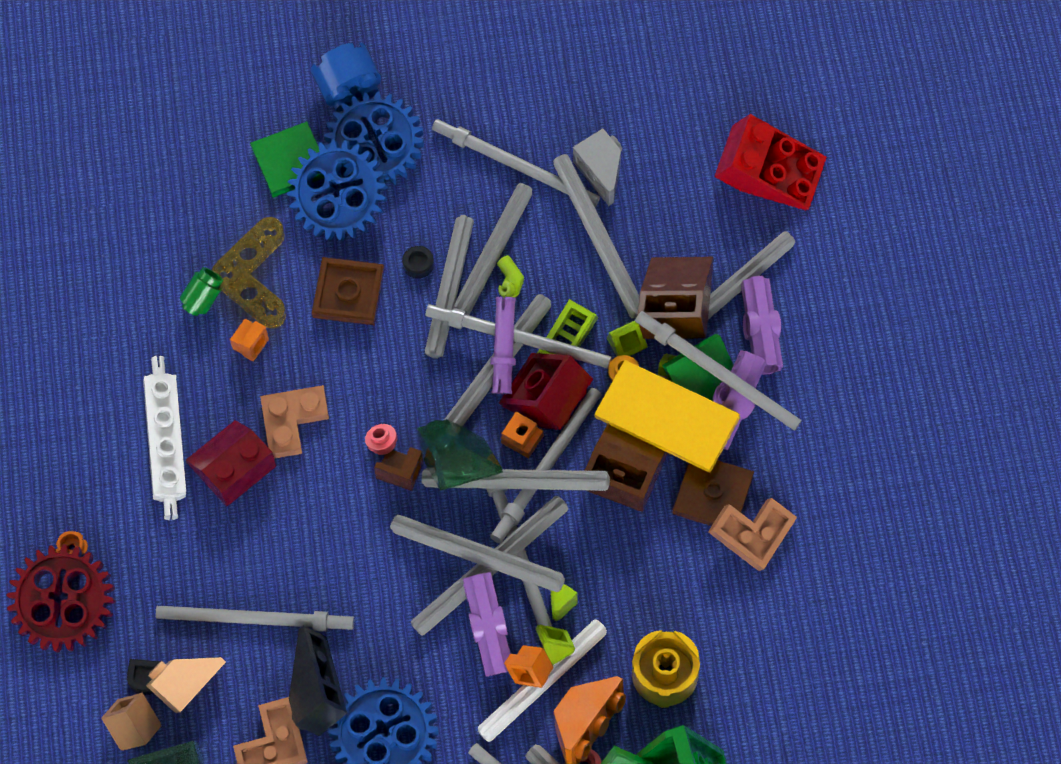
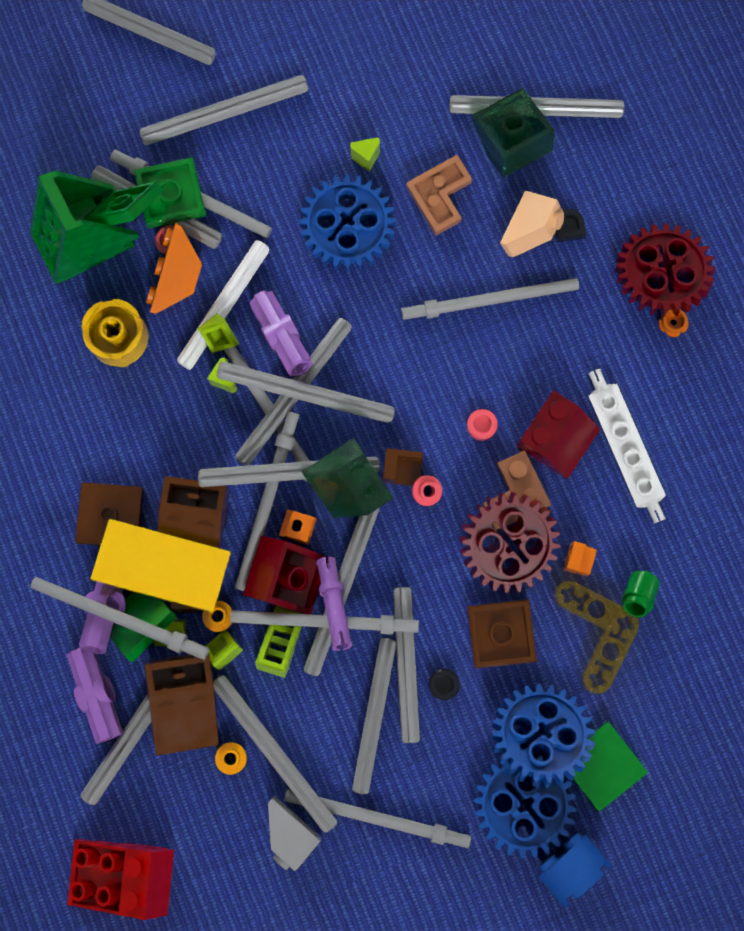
camera: 165 degrees right, 15 degrees up
(131, 721) = (565, 180): medium nougat panel -> none
(295, 377) = (530, 523): none -> dark red gear
(304, 492) = (482, 424): none -> coral tile
(314, 687) = (417, 244): black slope -> none
(513, 278) = (347, 686): lime arm -> none
(529, 666) = (233, 303): orange piece -> none
(641, 250) = (241, 758): none -> light orange plate
(757, 539) = (59, 474): nougat plate -> none

